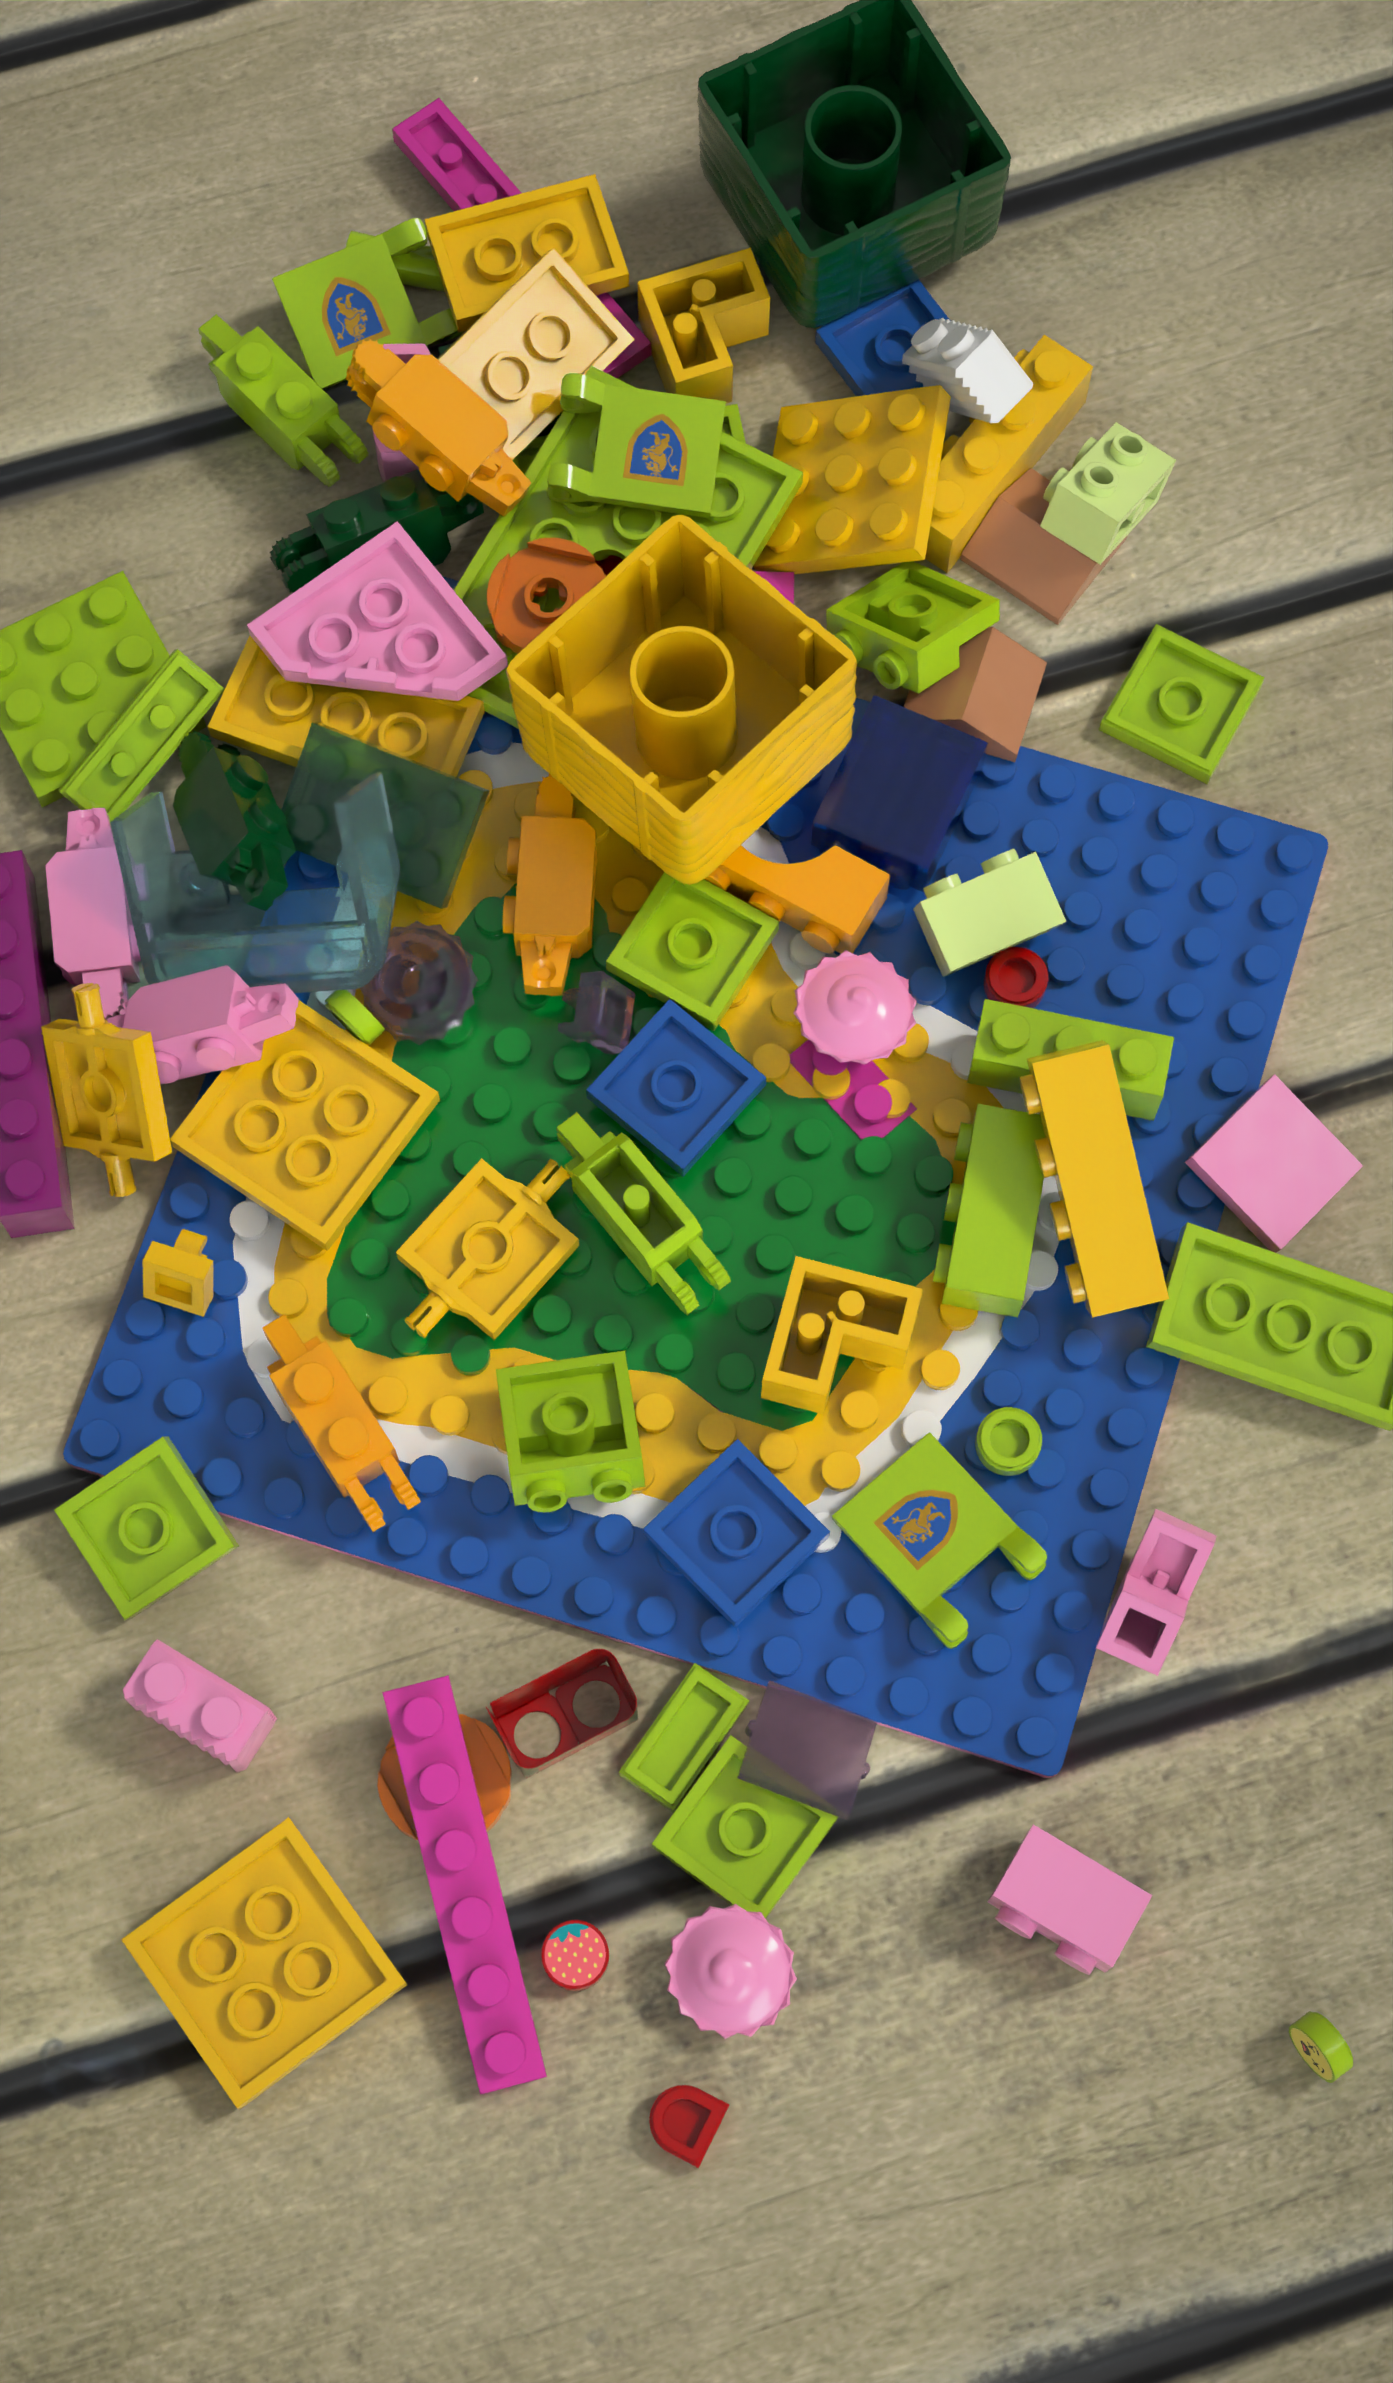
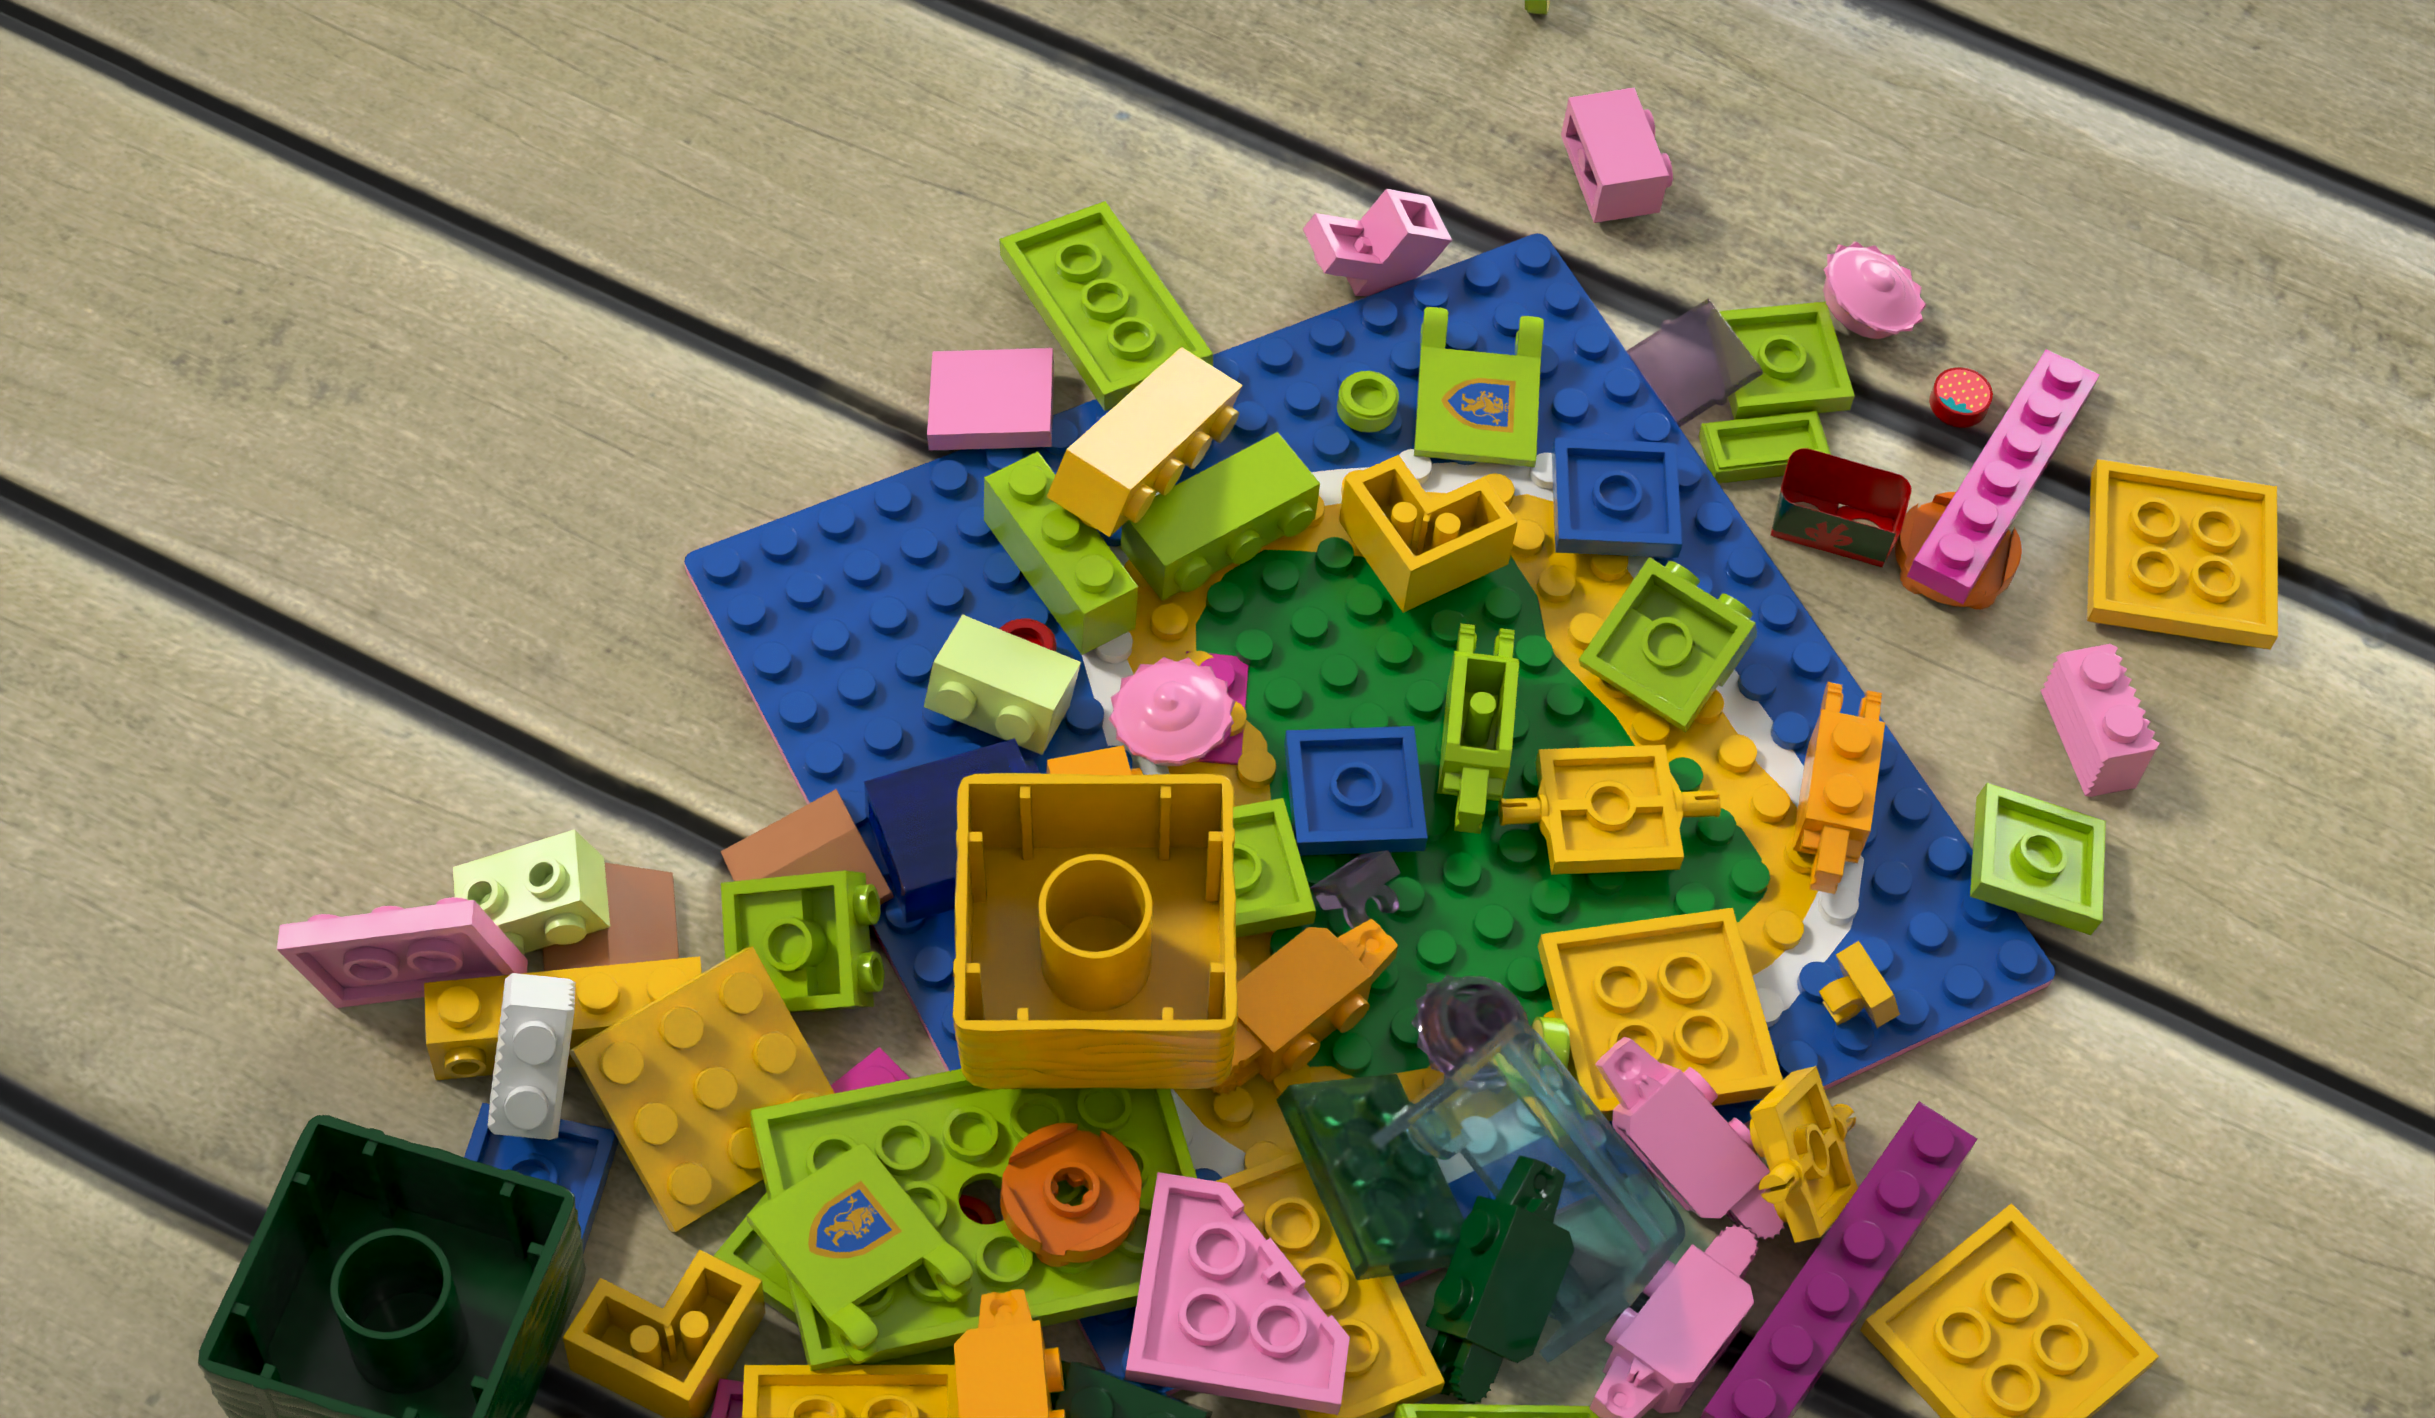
camera: 140 degrees left, 15 degrees down
(686, 2122) = (1971, 266): red tile -> none
(1122, 362) = (397, 950): none -> bright pink plate
(1181, 704) = (663, 734): lime tile -> none

